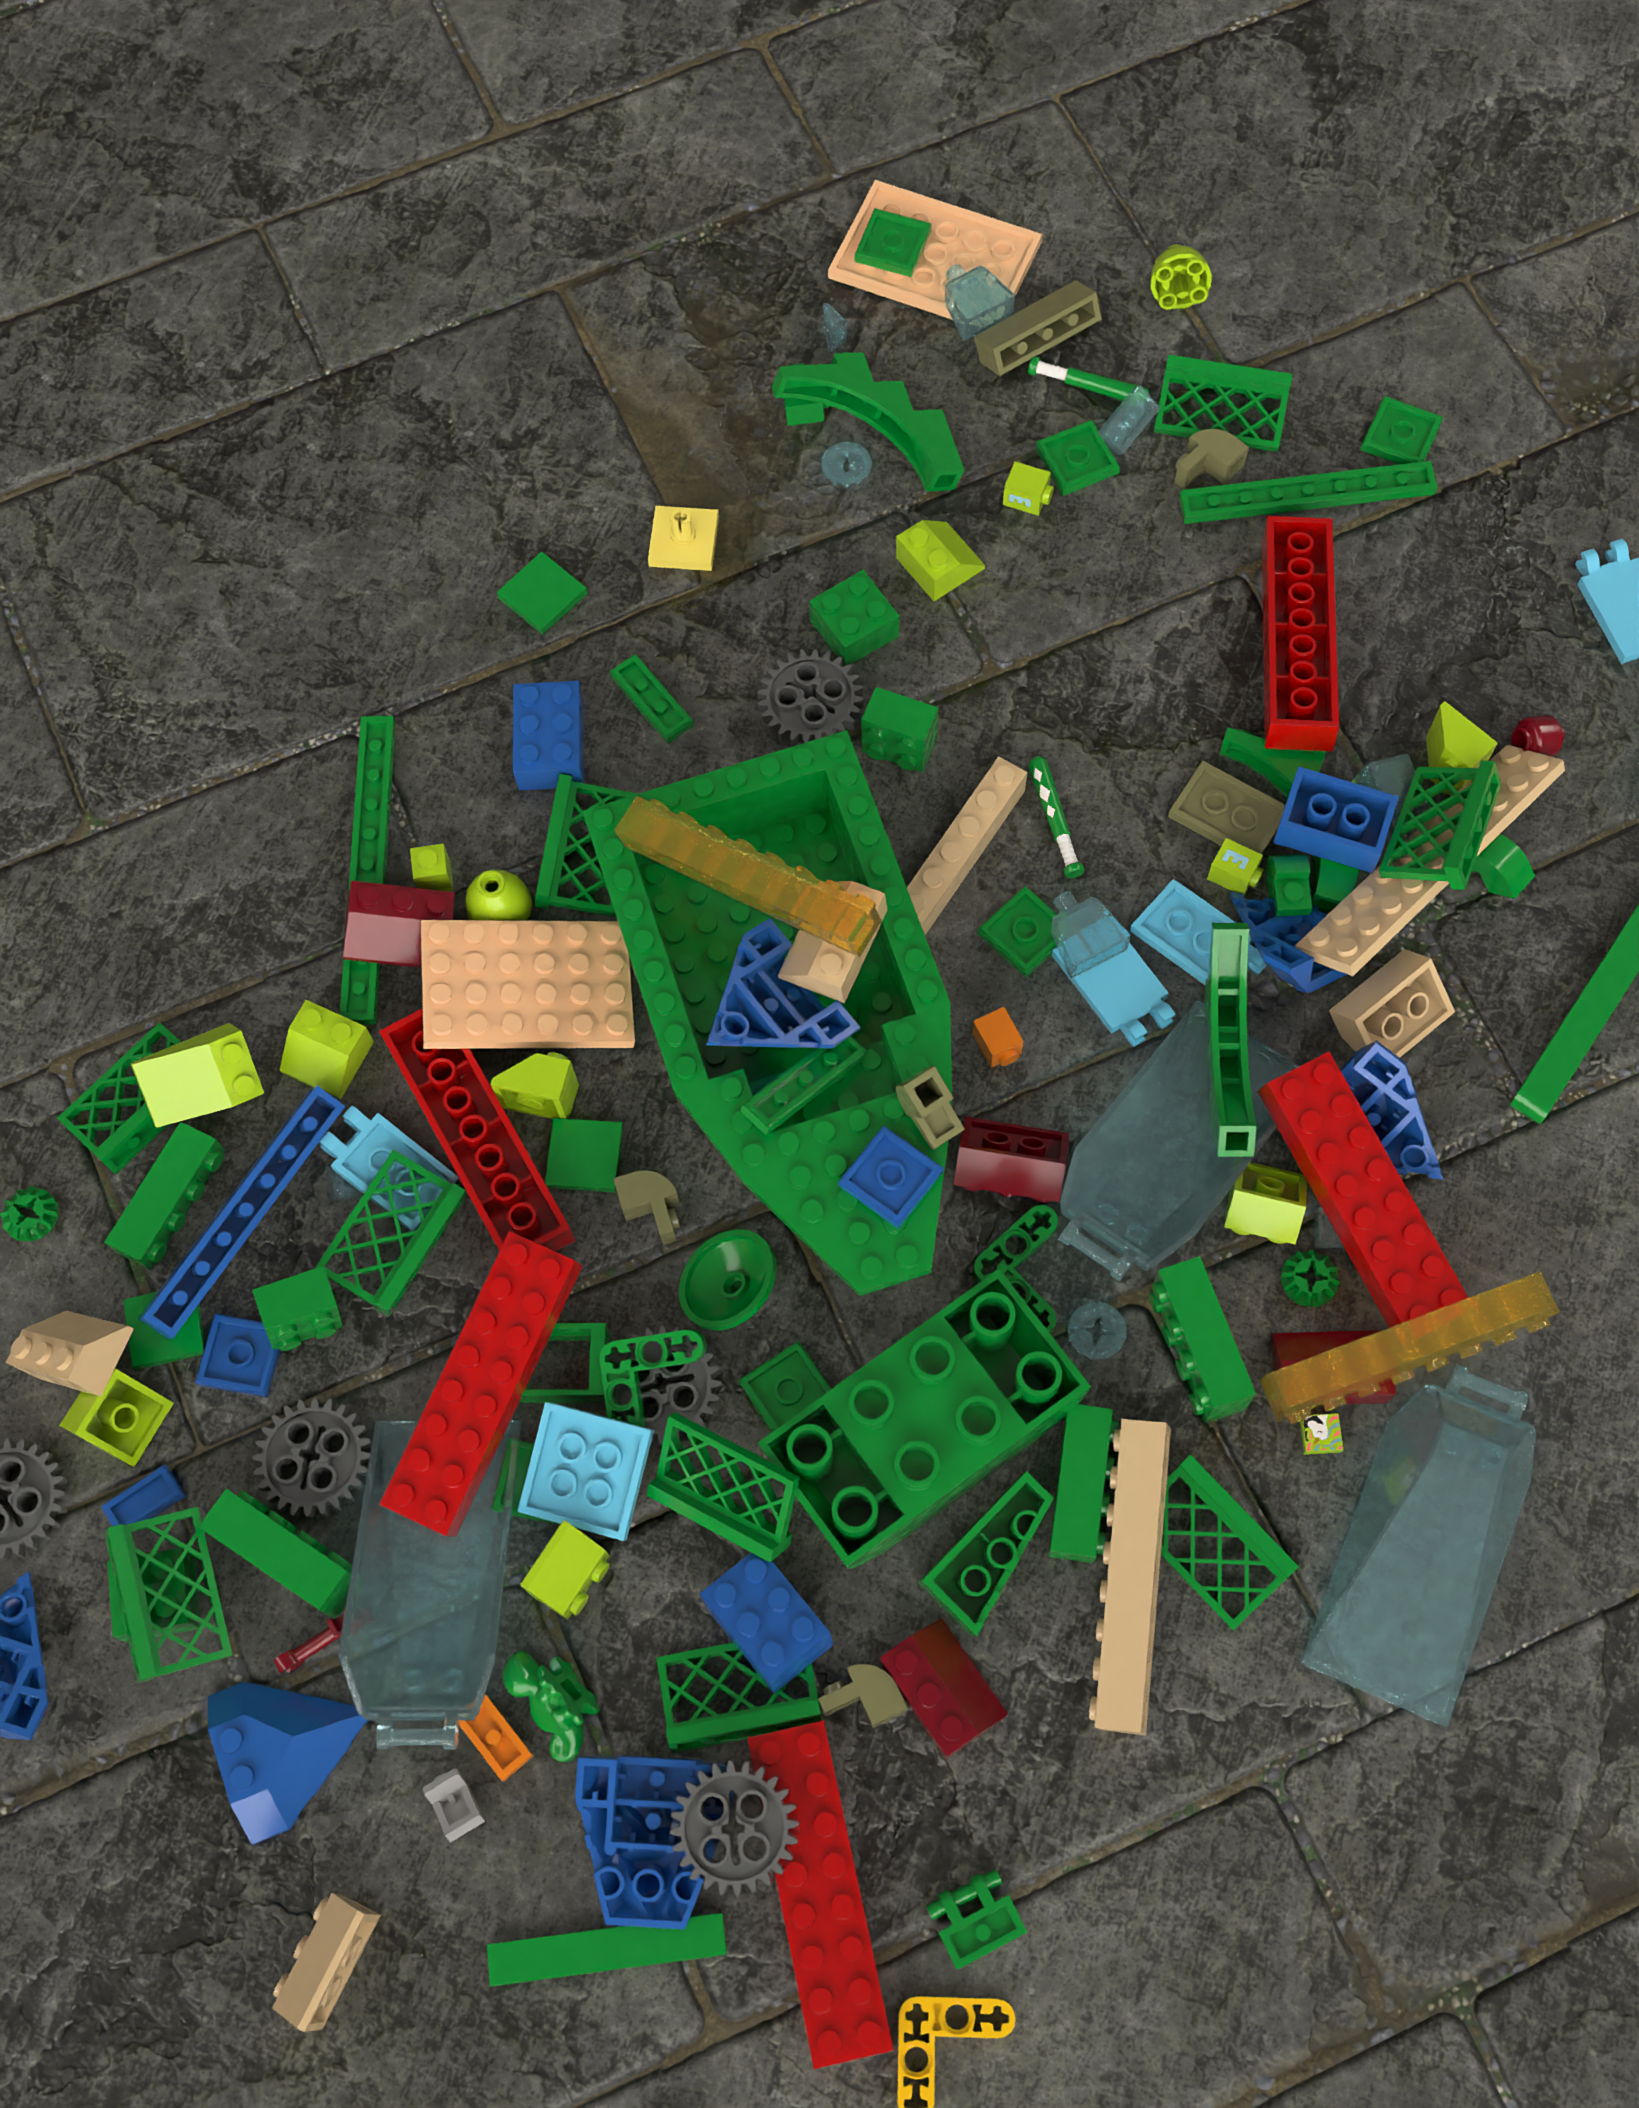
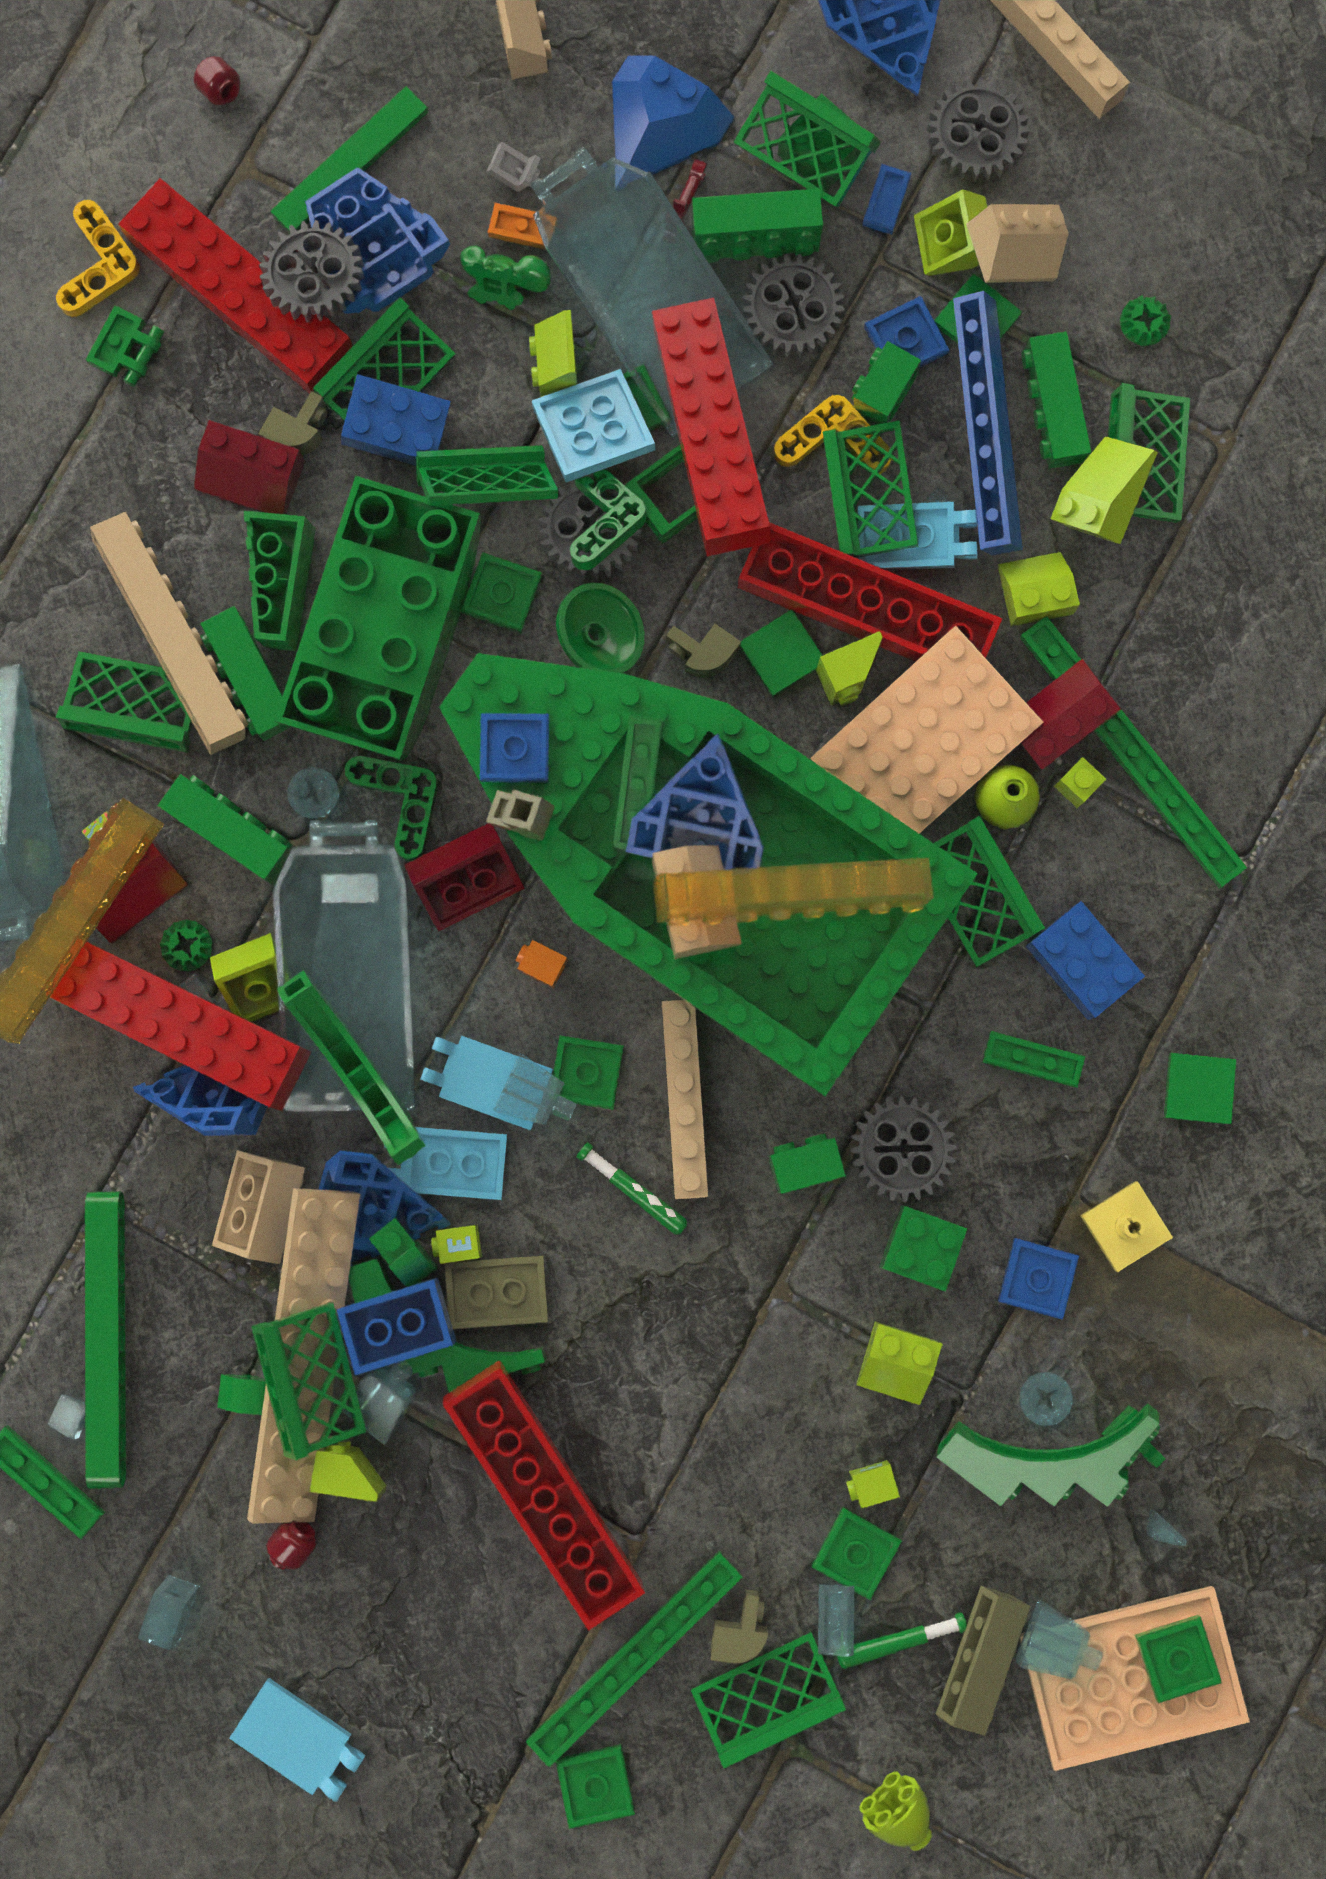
camera: 140 degrees right, 15 degrees up
(367, 1317) = (849, 419): none -> yellow beam
(782, 547) = (1038, 1278): none -> blue tile

